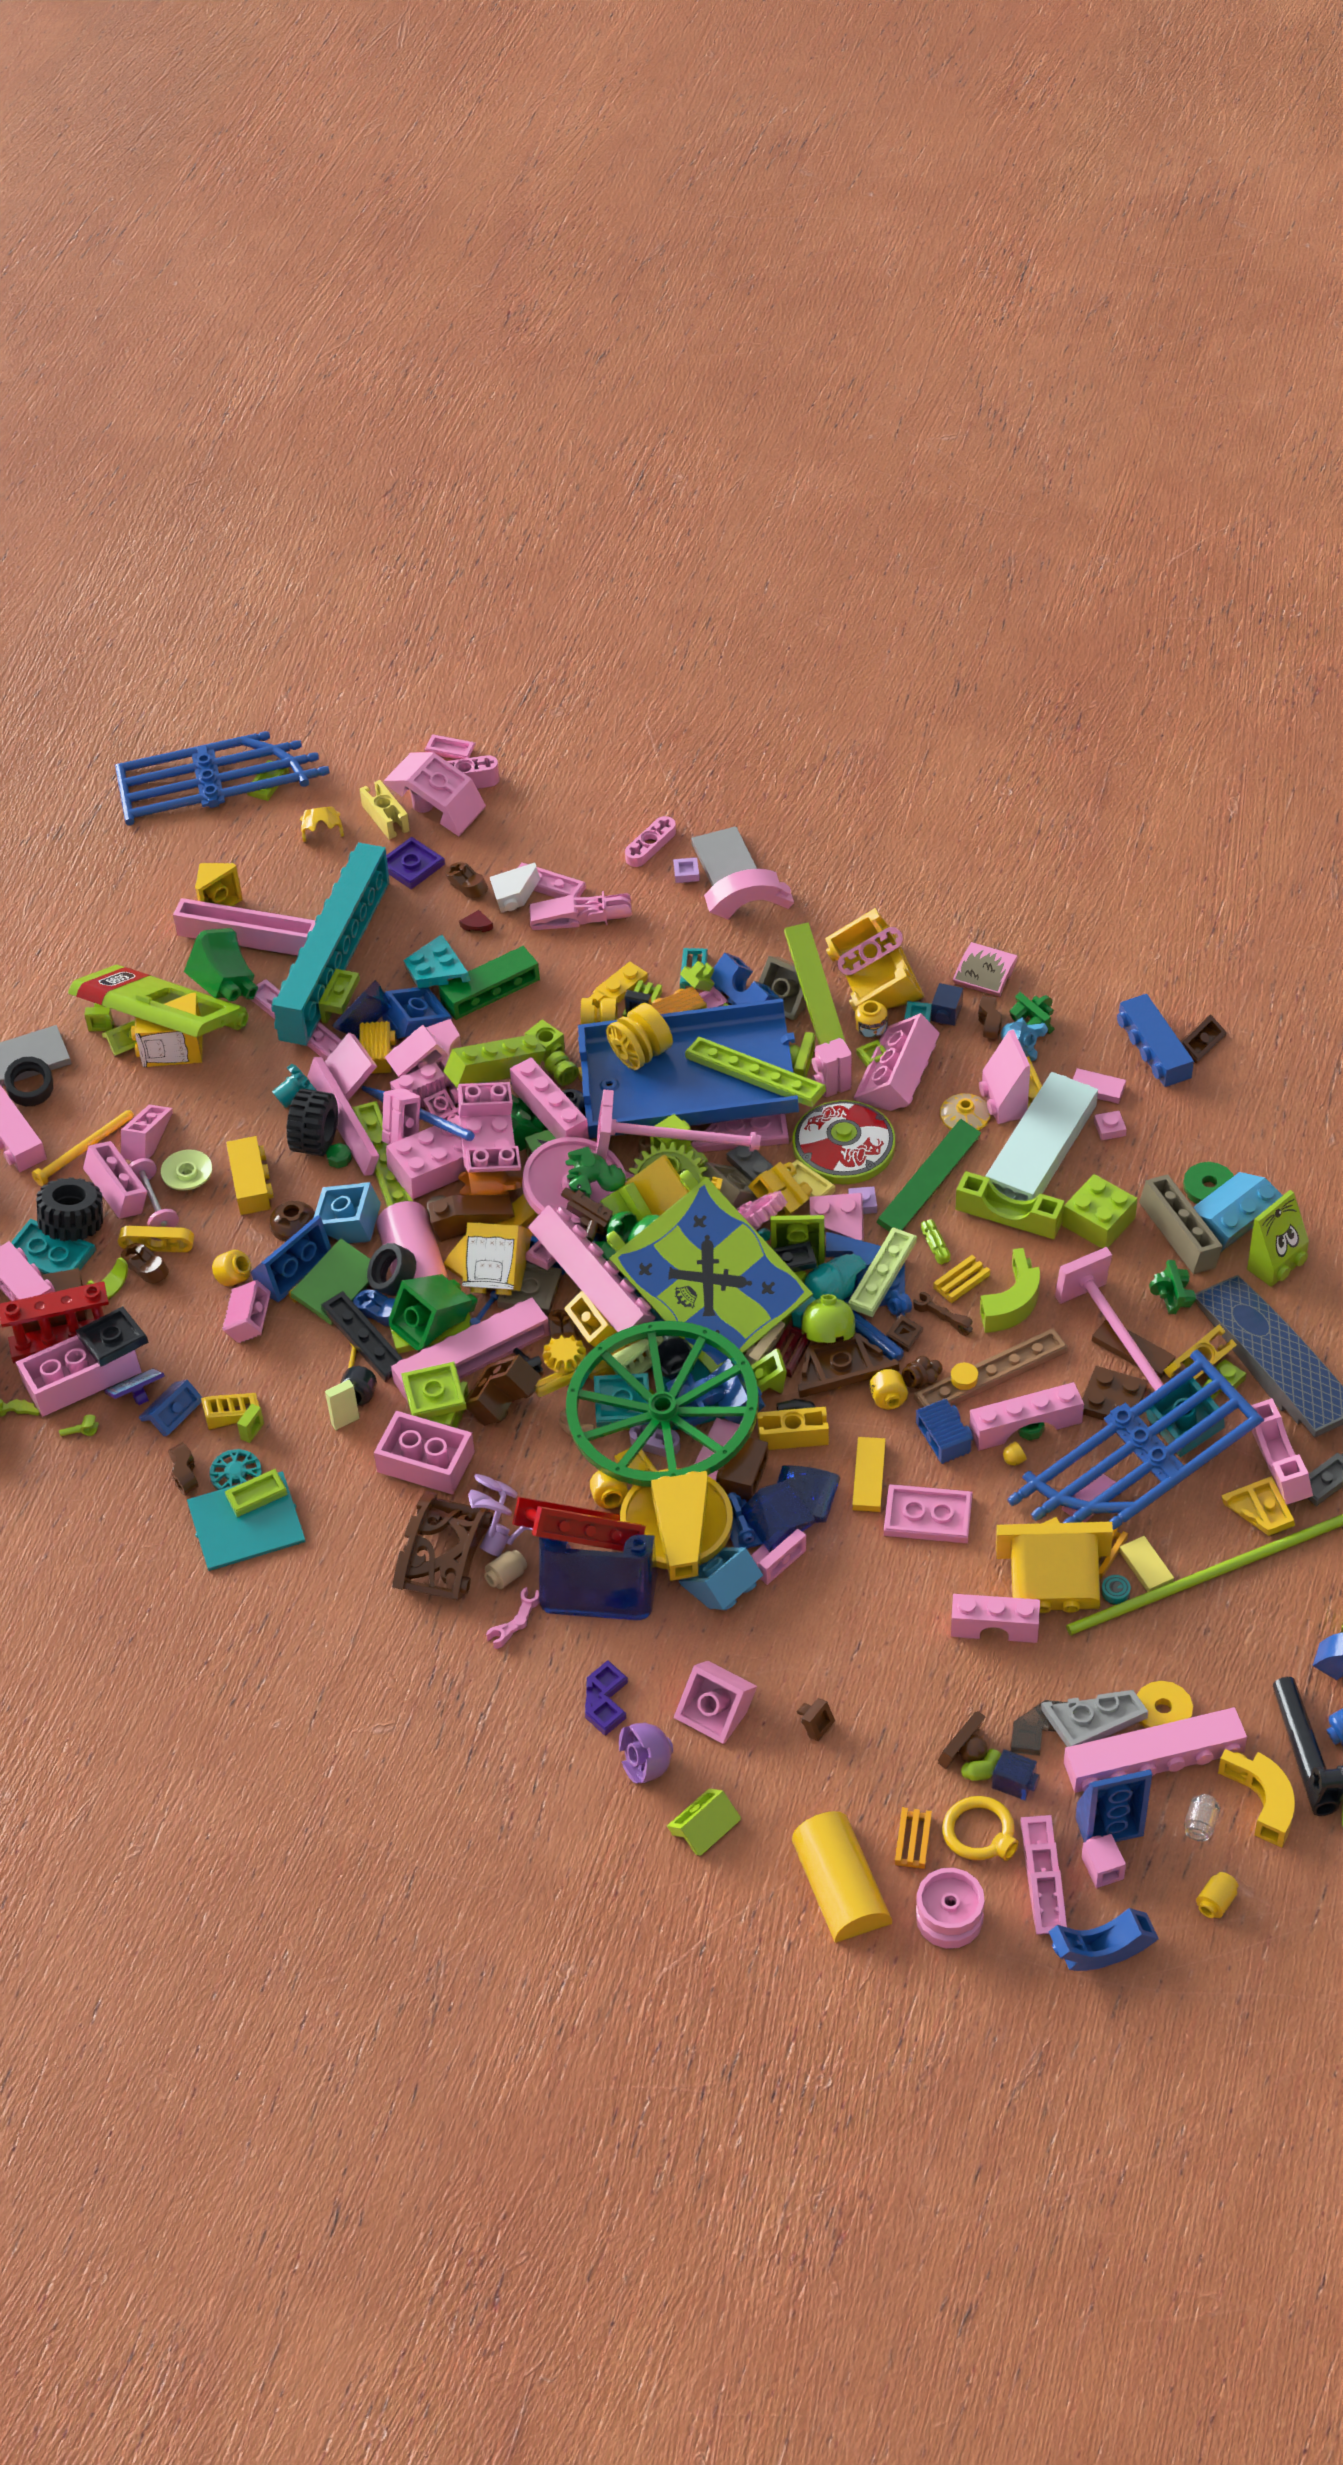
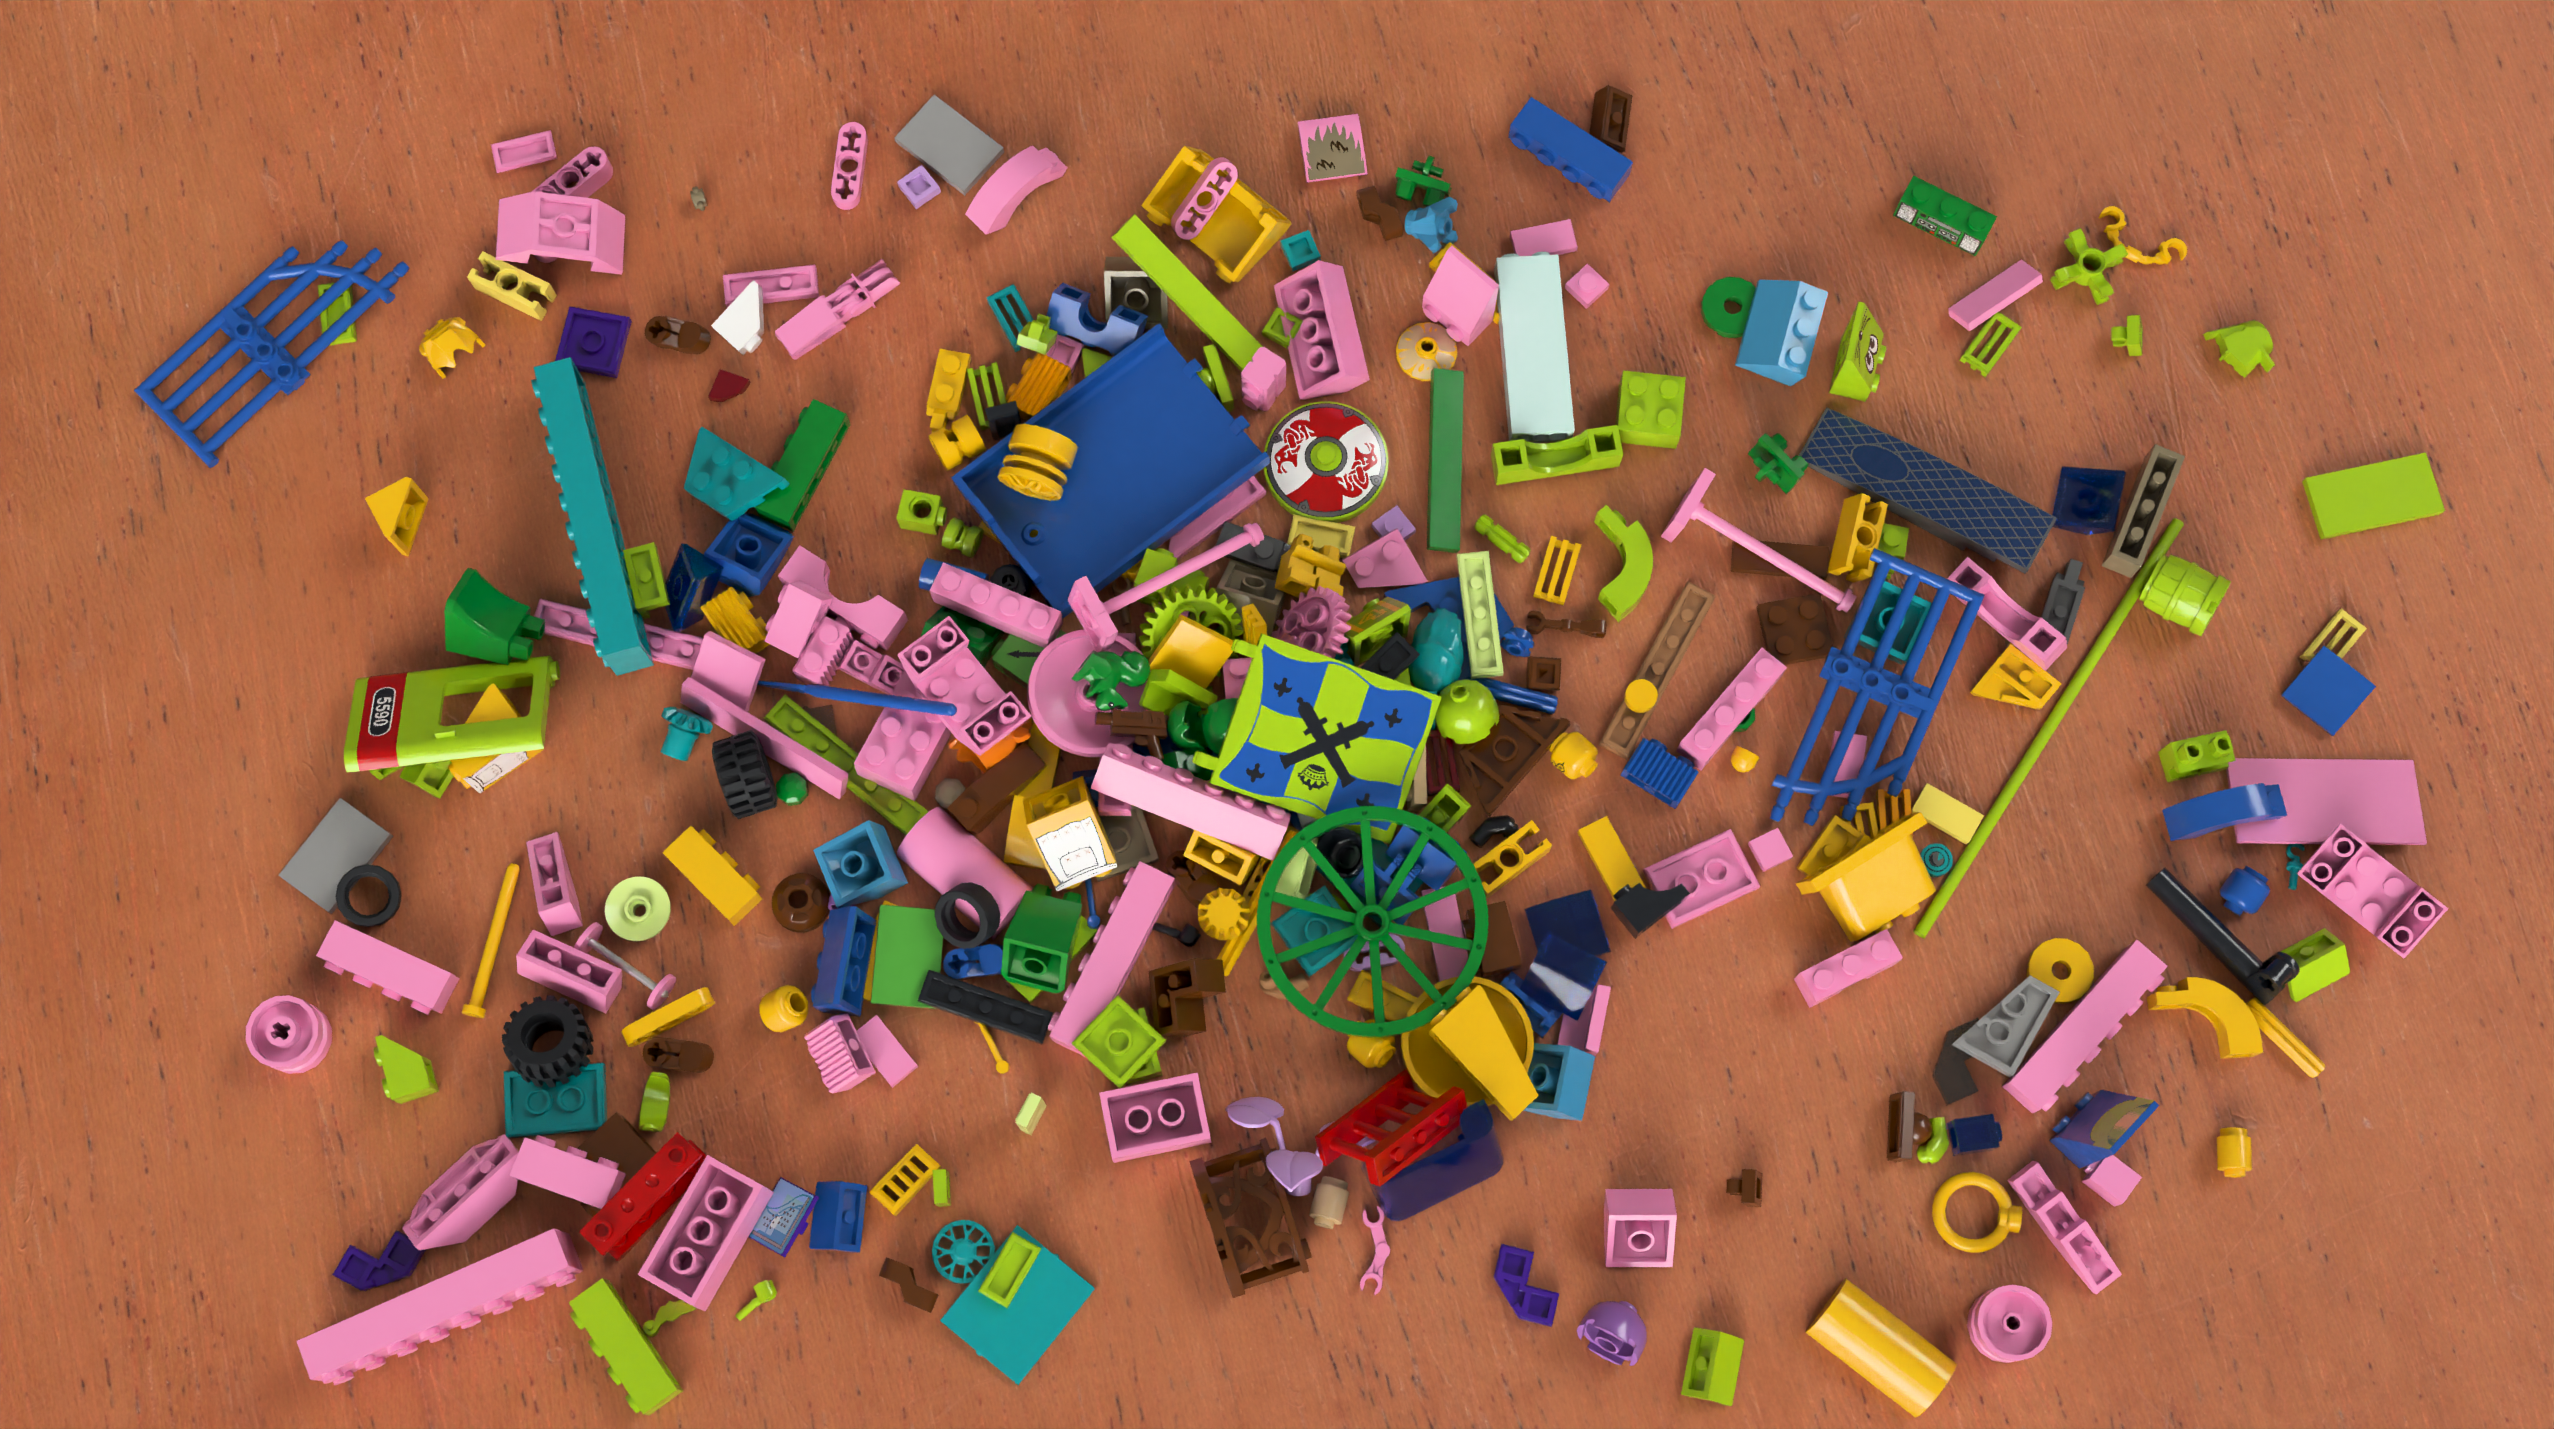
camera: 35 degrees left, 25 degrees up
(111, 1336) = (725, 1184): black tile -> none
(252, 927) = (471, 545): bright pink brick -> none
(278, 1330) = (885, 1051): none -> bright pink tile
(363, 1382) = (1024, 1073): black head -> none
(400, 1115) = (842, 715): bright pink brick -> none
(491, 1060) = (893, 580): lime brick -> none
(539, 816) = (698, 198): none -> dark tan piece
(755, 1071) = (1189, 436): lime tile -> none
(870, 1502) = (1642, 908): none -> black arch
(871, 1019) = (1259, 287): yellow head -> none
(915, 1816) = (1930, 1254): light orange tile -> none
(921, 1372) = (1595, 715): reddish brown piece -> none
(947, 1004) = (1324, 221): dark blue brick -> none
(990, 1518) = (1770, 850): none -> bright pink tile
(1106, 1944) = (2168, 1268): blue arch -> none
(1180, 1224) = (1742, 381): dark tan brick -> none
(1202, 1817) = (2171, 1074): clear brick -> none
(1314, 1844) = (2285, 1039): none -> yellow axle

